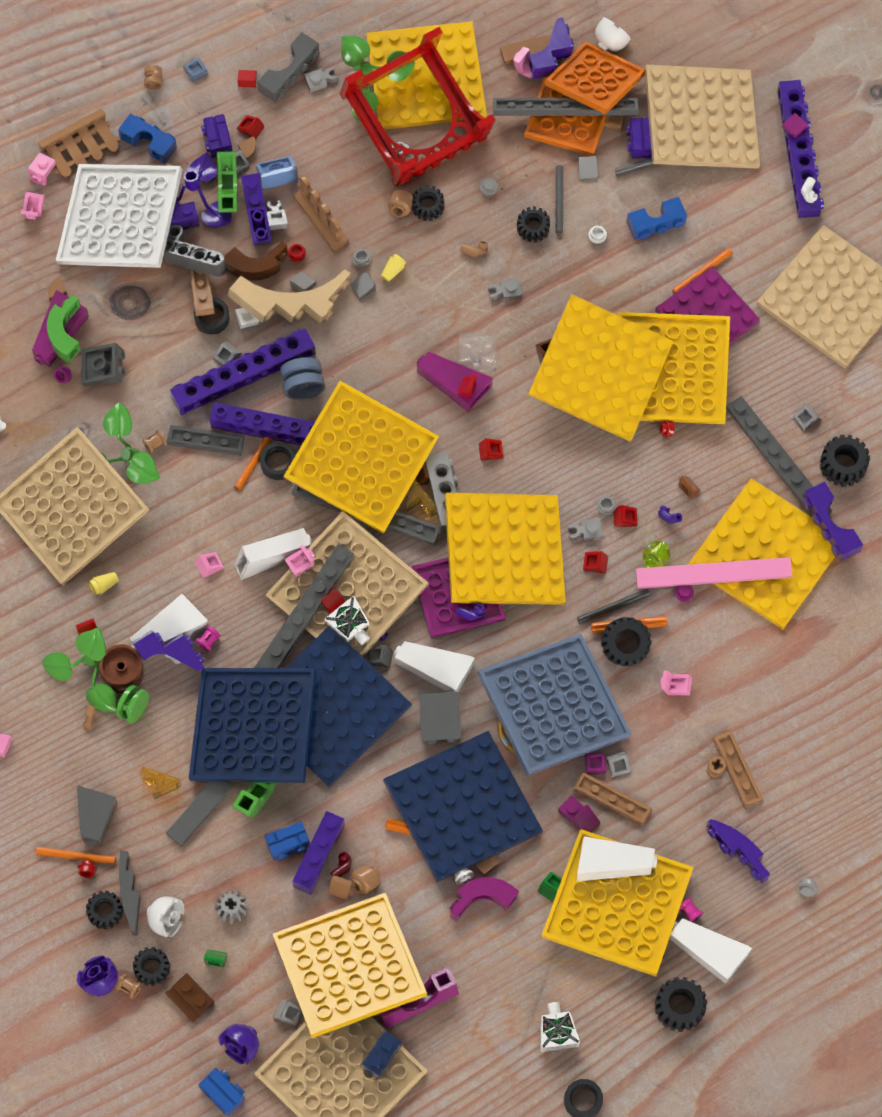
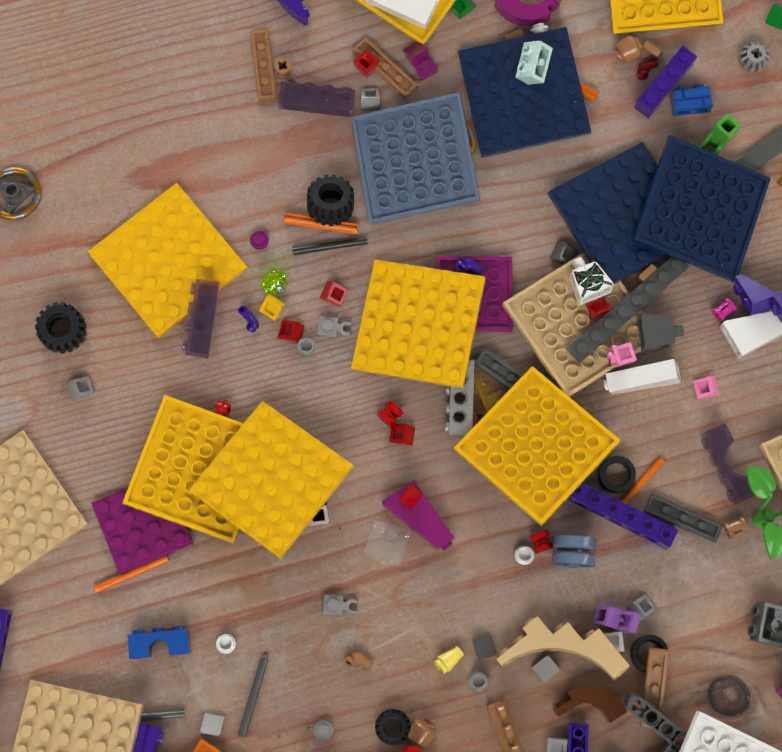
camera: 165 degrees left, 10 degrees up
(187, 513) = (717, 442): none -> clear purple arch
(238, 380) = (697, 561): dark purple brick -> none
(248, 336) = (616, 619): none -> medium lavender brick
(269, 593) = (657, 332): none -> dark grey torso
(293, 652) = (646, 273): none -> medium nougat tile
(296, 253) = (544, 705): red plate -> none
(331, 382) = (541, 546): none -> red wheel
(347, 372) = (524, 555): none -> white plate
(437, 666) = (514, 227): white slope -> none
(440, 716) = (524, 175): dark grey brick -> none
(460, 822) = (534, 62): none -> light aqua brick
(507, 462) = (390, 413): none -> red wheel
(537, 215) = (277, 672): black tyre -> none
(595, 763) = (390, 100): magenta tile -> none
(633, 793) = (366, 63): none -> red slope
(650, 531) = (272, 307): none -> yellow plate
(671, 744) = (317, 99): none -> clear purple brick
(676, 683) = (294, 153): bright pink bracket -> none
(688, 486) = (219, 345): dark orange slope -> none
(713, 573) = (225, 246): bright pink tile -> none
(714, 501) = (201, 319): none -> clear purple brick
(770, 449) = (123, 352): dark grey plate -> none
(843, 541) = (100, 288): dark purple arch -> none

